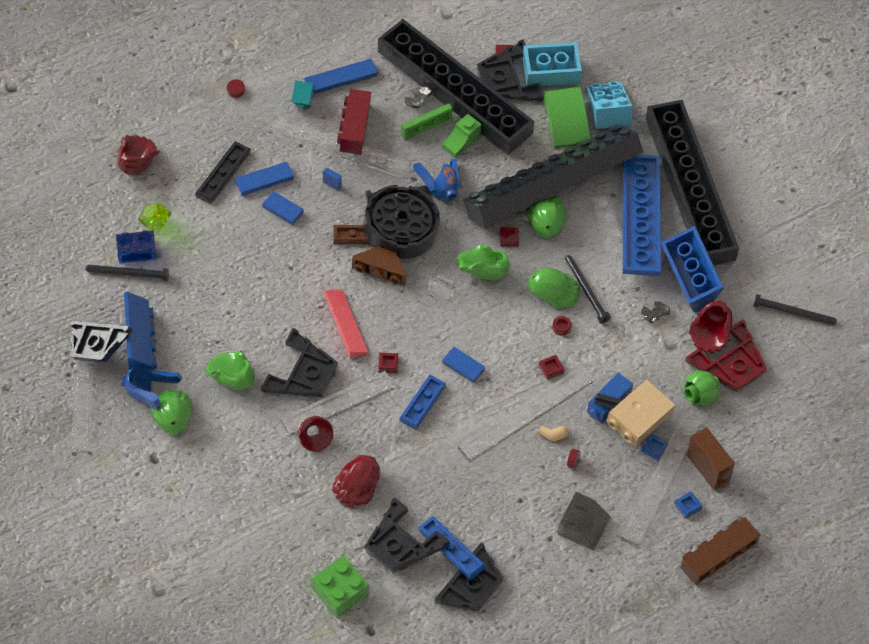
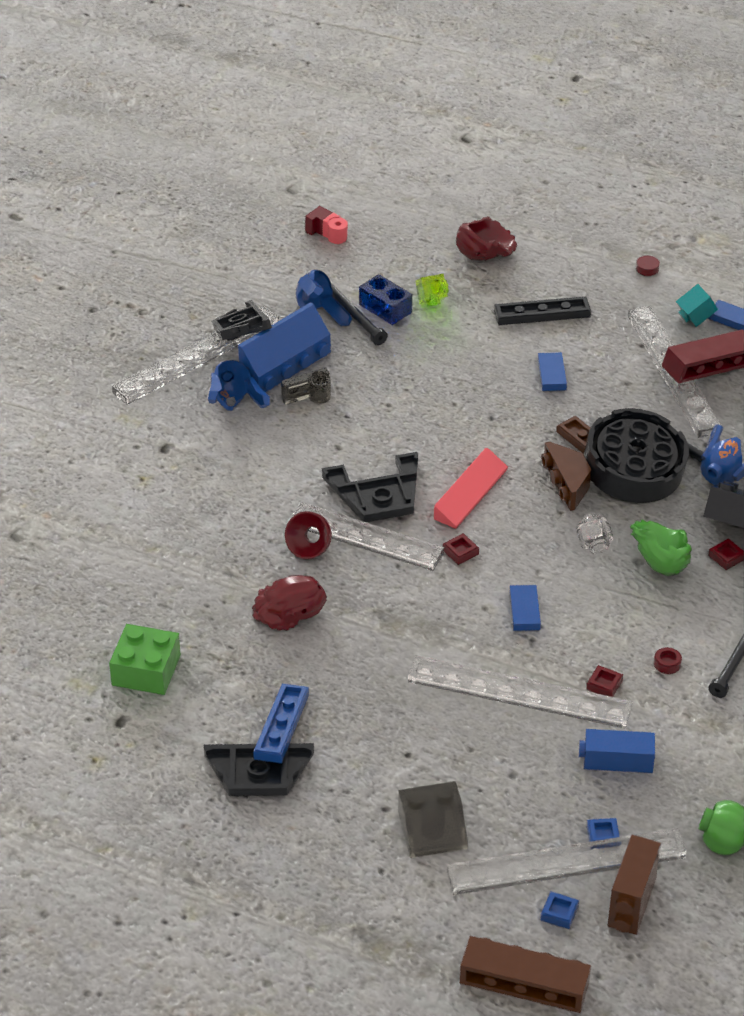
camera: 55 degrees right, 15 degrees down
(30, 226) = (326, 224): none -> leg
(95, 279) = (317, 289): none -> blue piece
(174, 407) = (227, 422): bright green piece -> none
(177, 344) = (311, 385): none -> clear smoke plate
(231, 370) = (316, 437): bright green piece -> none
(264, 178) = (570, 340): blue tile -> none
(332, 179) = (626, 382): blue tile -> none
(395, 546) = (239, 675): black wing -> none
(422, 402) = (443, 602): blue tile -> none
(554, 288) = (705, 622): bright green piece -> none
(554, 434) = (520, 732): tan arm -> none
(573, 459) = (505, 765): dark red tile -> none
(638, 413) = (618, 777): tan piece -> none

